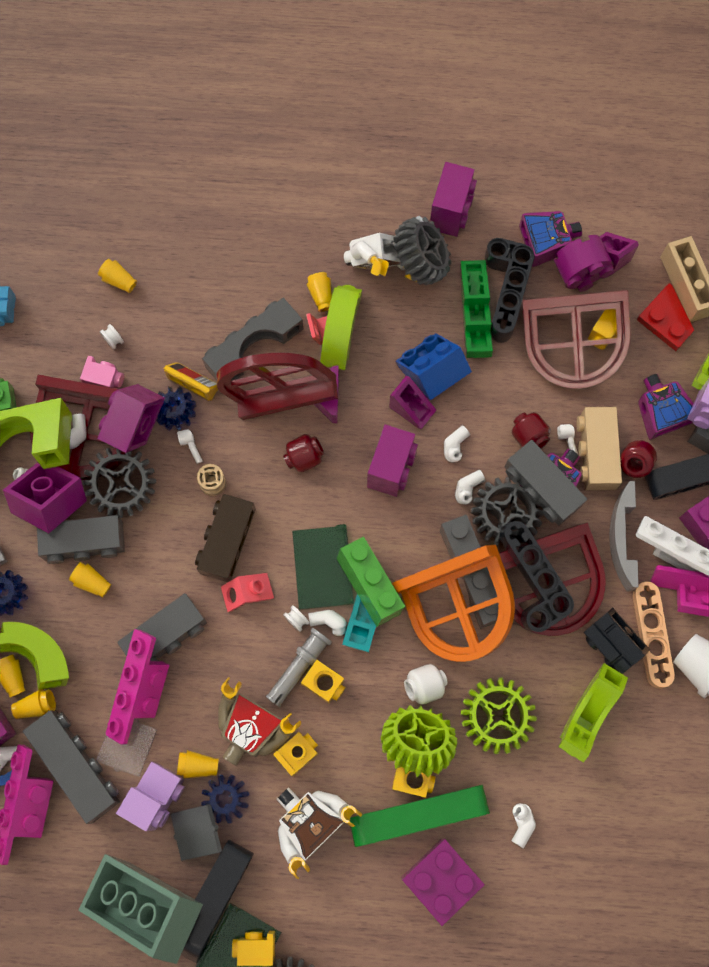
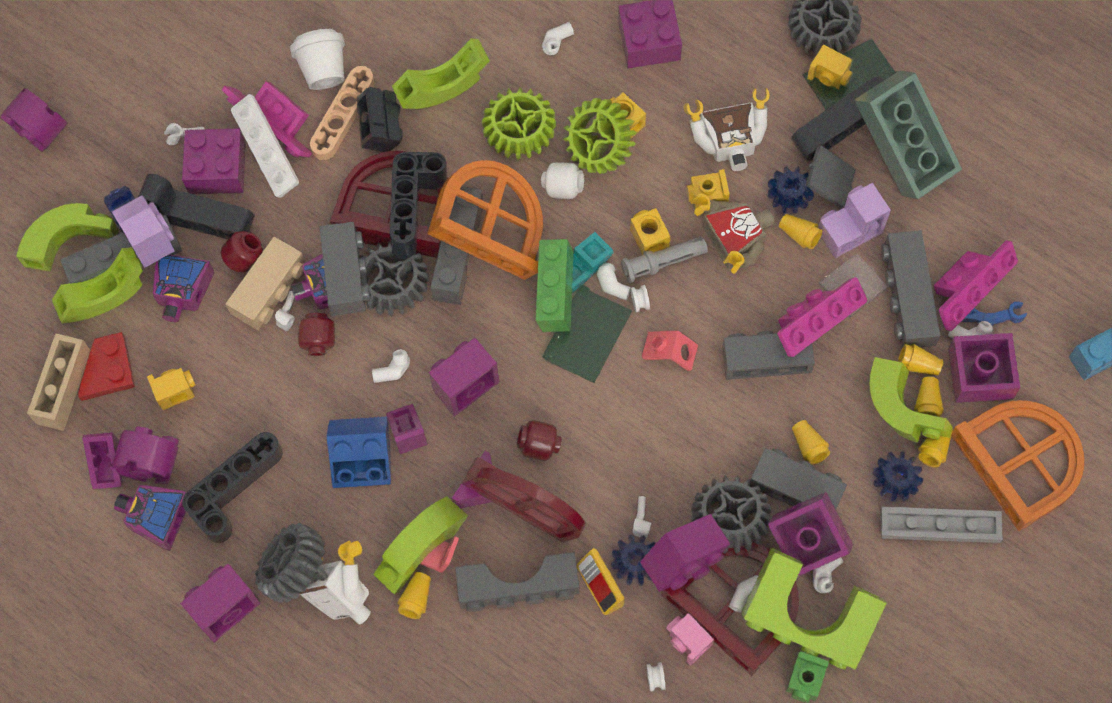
camera: 145 degrees left, 5 degrees down
(215, 484) = (642, 473): tan wheel -> none
(225, 538) = (660, 405): dark brown brick -> none
(419, 815) = (645, 90): green beam -> none
(465, 486) = (411, 325): white arm -> none
(476, 309) = (277, 486): green slope -> none
(575, 305) = (186, 418): window -> none
(626, 569) = (284, 225): light grey slope -> none

